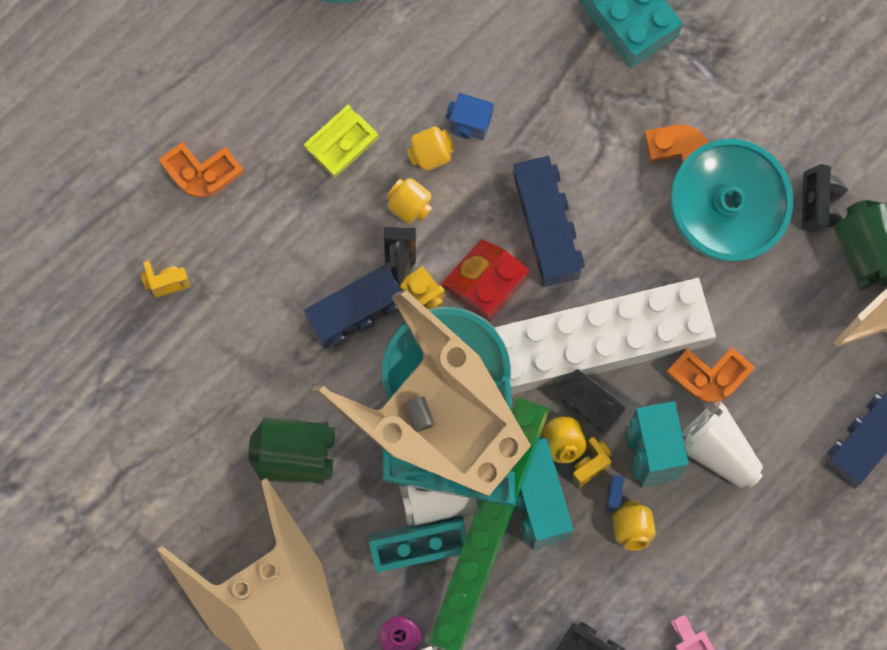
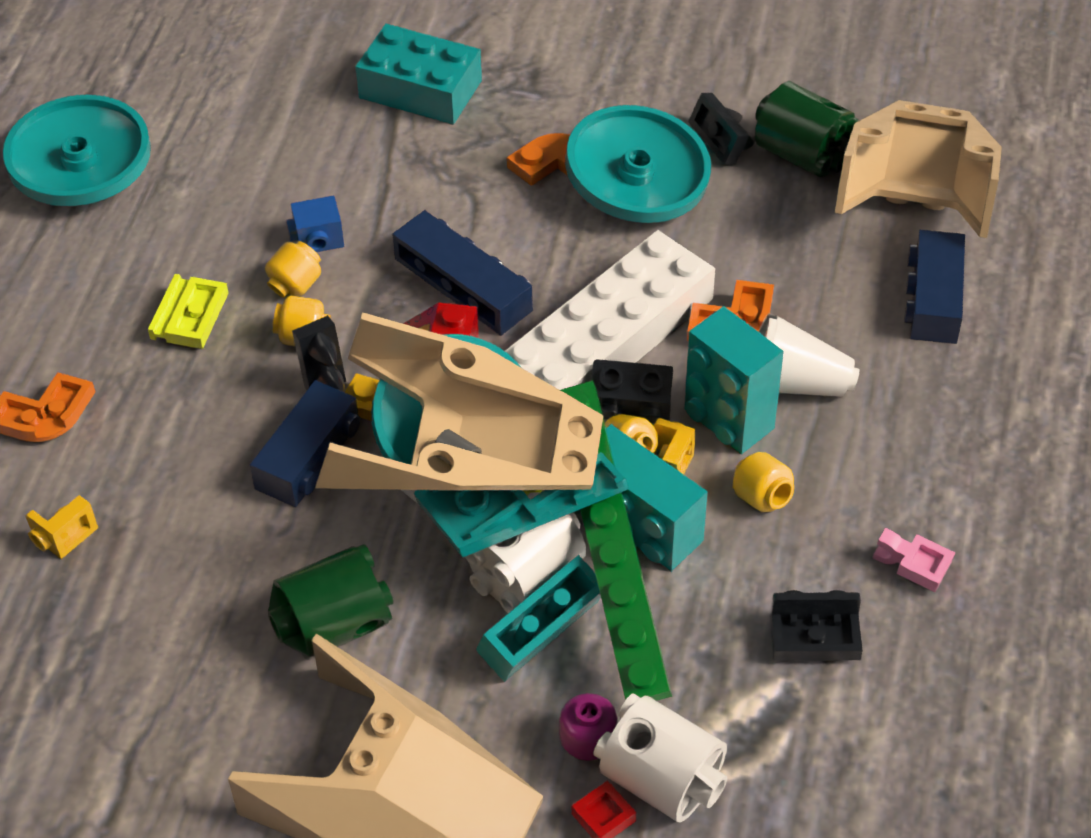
camera: 30 degrees left, 25 degrees down
(614, 493) = (719, 464): blue tile -> none

